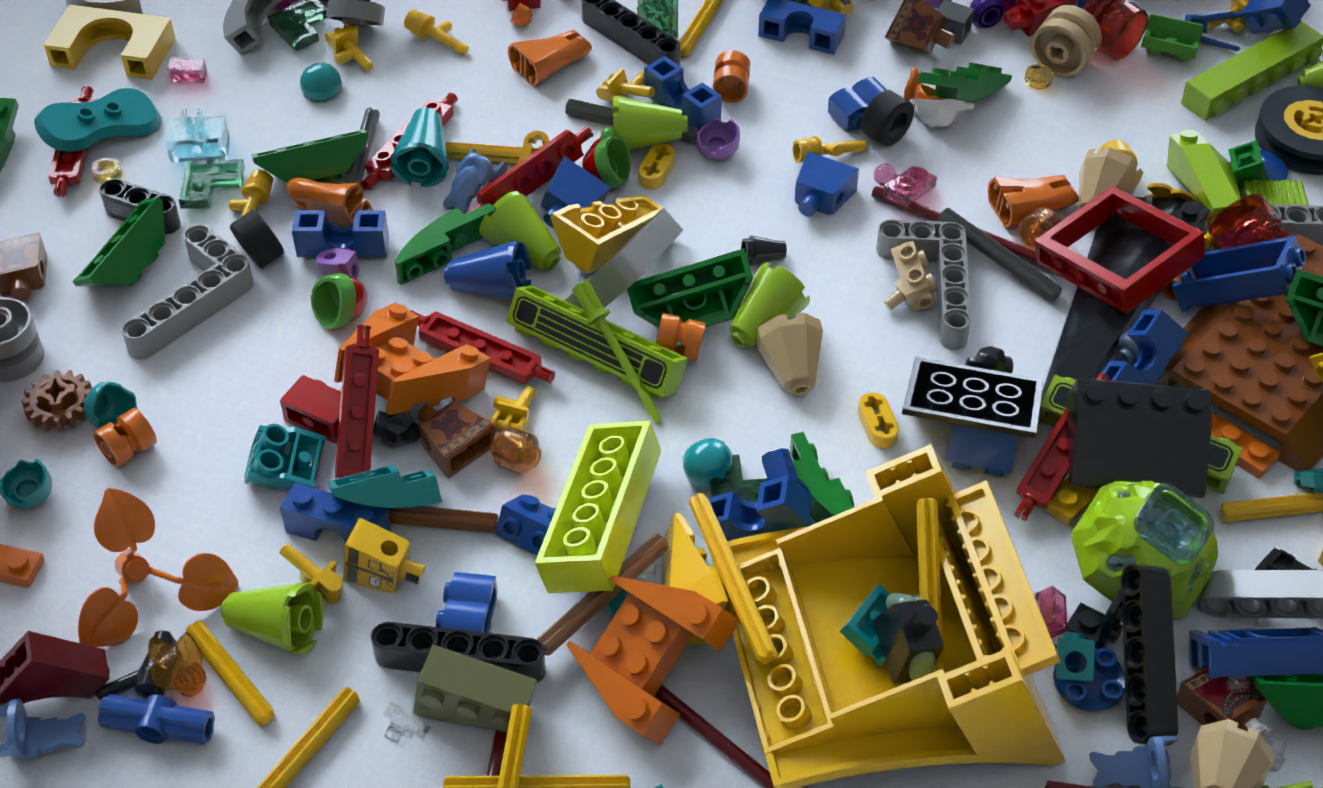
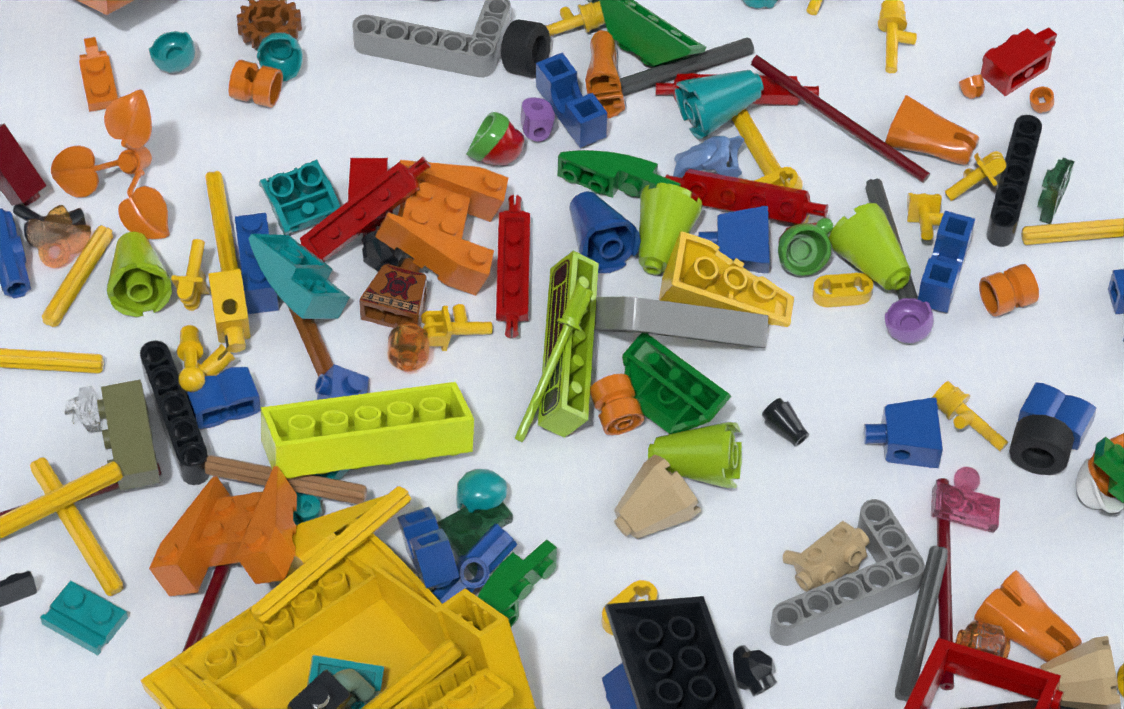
camera: 60 degrees right, 5 degrees up
(270, 535) = (221, 221): none -> yellow axle
(425, 601) = (212, 365): none -> yellow pin
(441, 615) = (190, 351): none -> yellow pin
(494, 92) = (840, 119): none -> dark red piece
(616, 32) = (988, 167): none -> yellow arm

